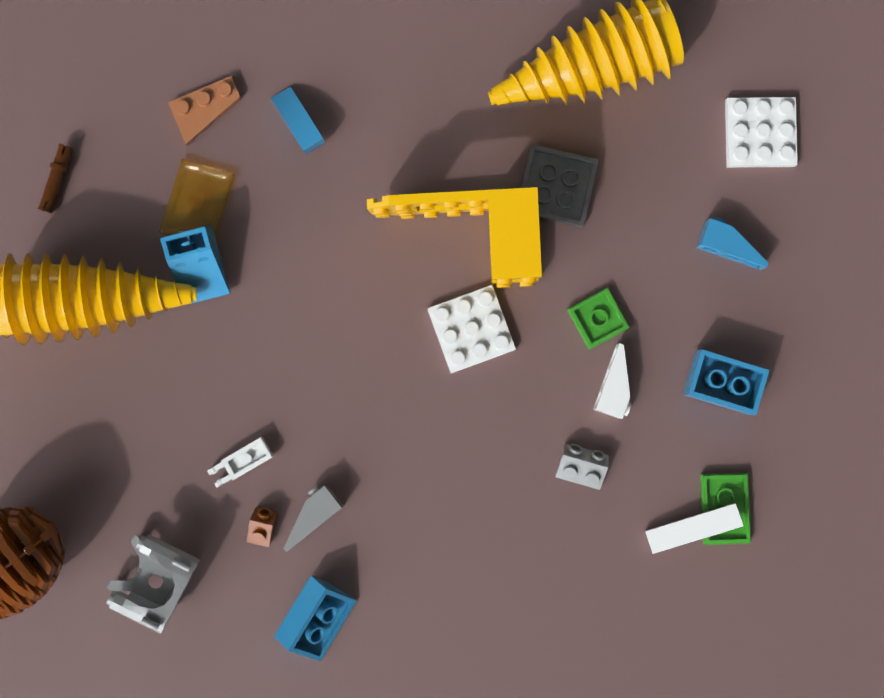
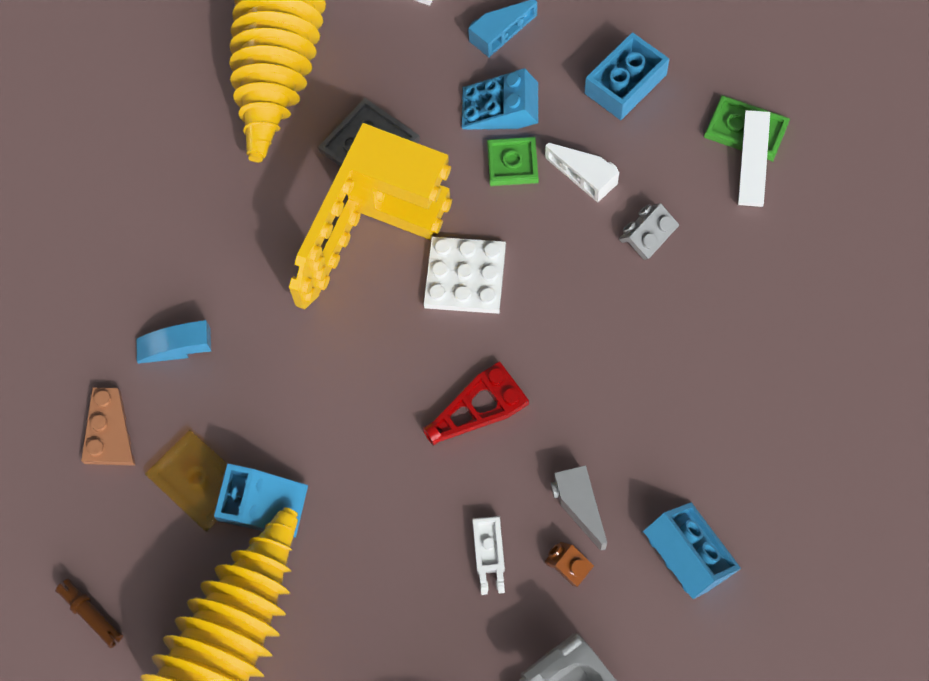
camera: 55 degrees left, 20 degrees down
(382, 410) = (500, 386): none -> red plate
(650, 281) = (501, 102): none -> dark azure slope

